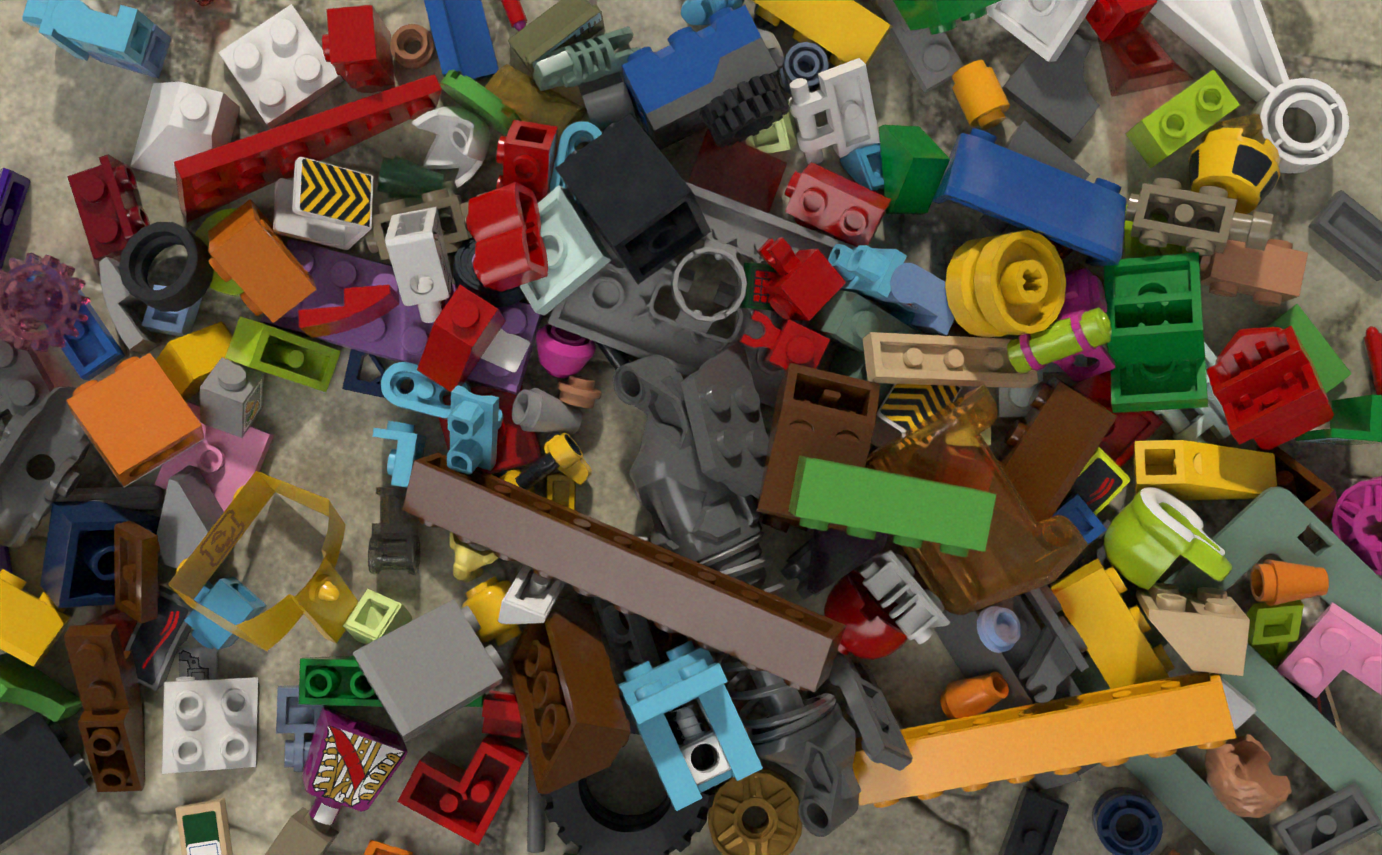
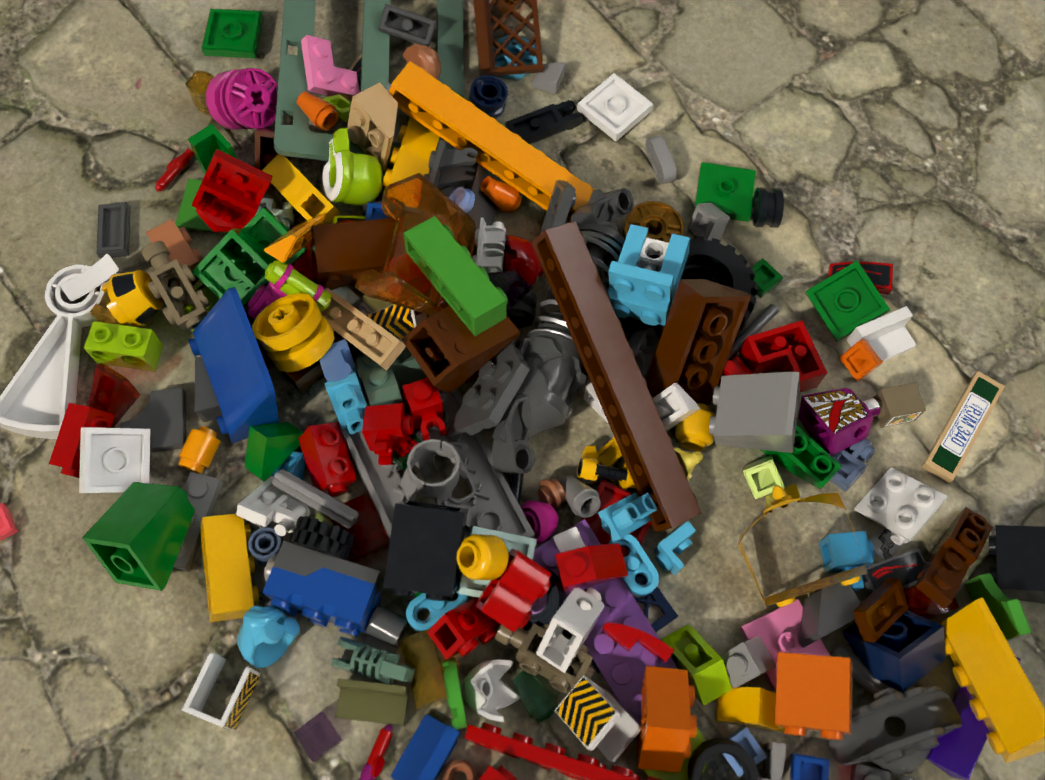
camera: 140 degrees left, 20 degrees down
(393, 535) = (718, 509): clear smoke connector -> none
(559, 229) = (482, 557): none -> yellow head
(804, 152) = (315, 498): none -> light grey axle
(1127, 390) = (294, 240): none -> light orange slope
(1304, 147) = (90, 278): none -> white sticker

